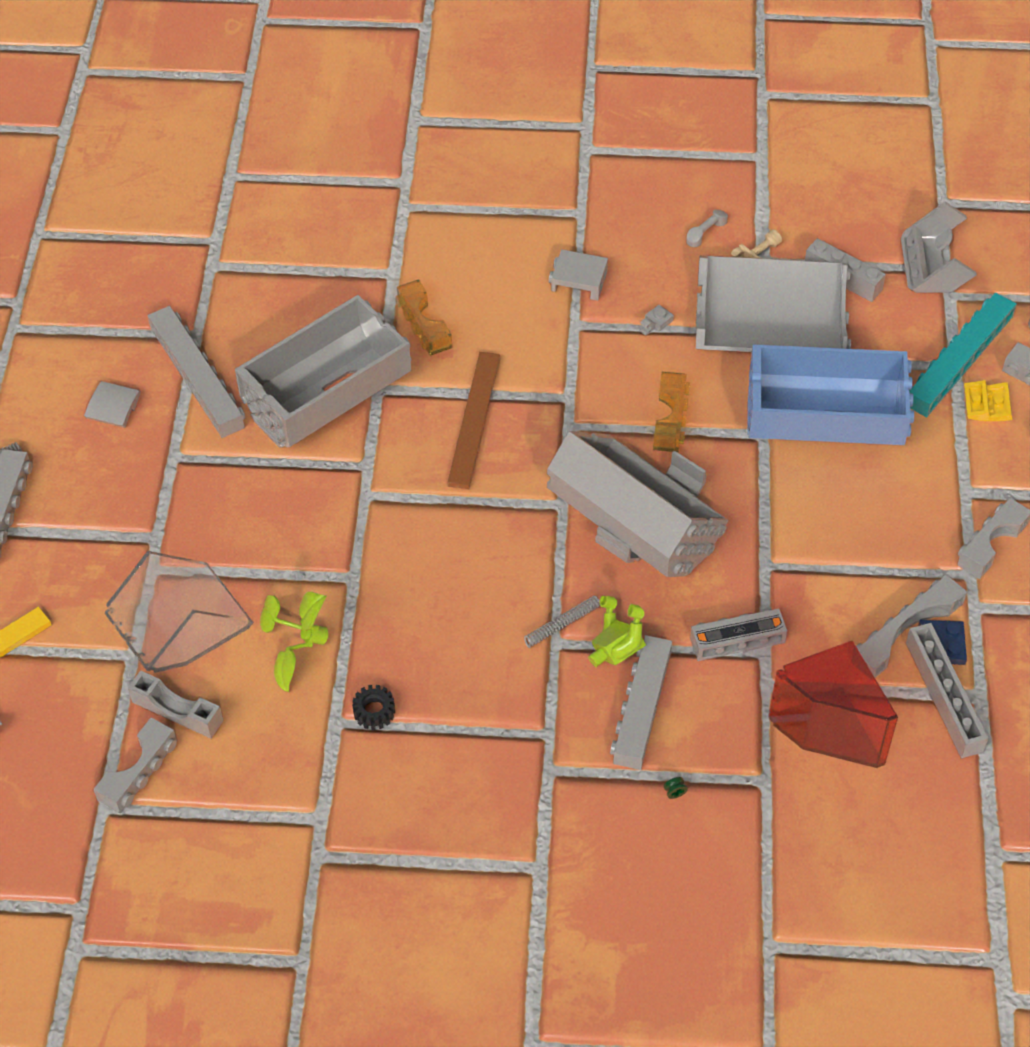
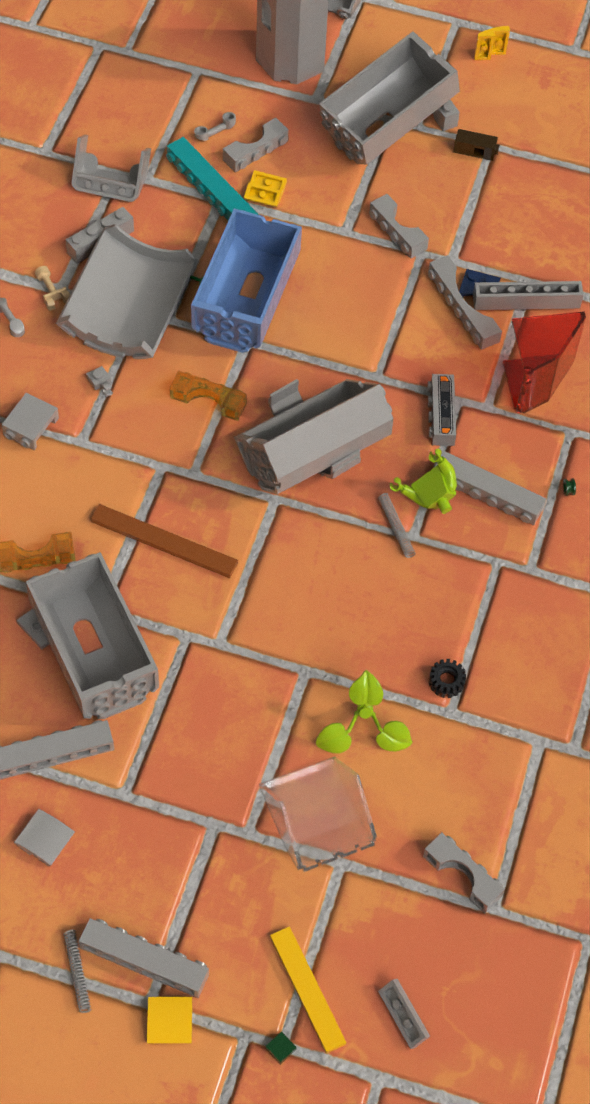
camera: 80 degrees left, 5 degrees up
(155, 696) = (403, 840): light grey arch -> none

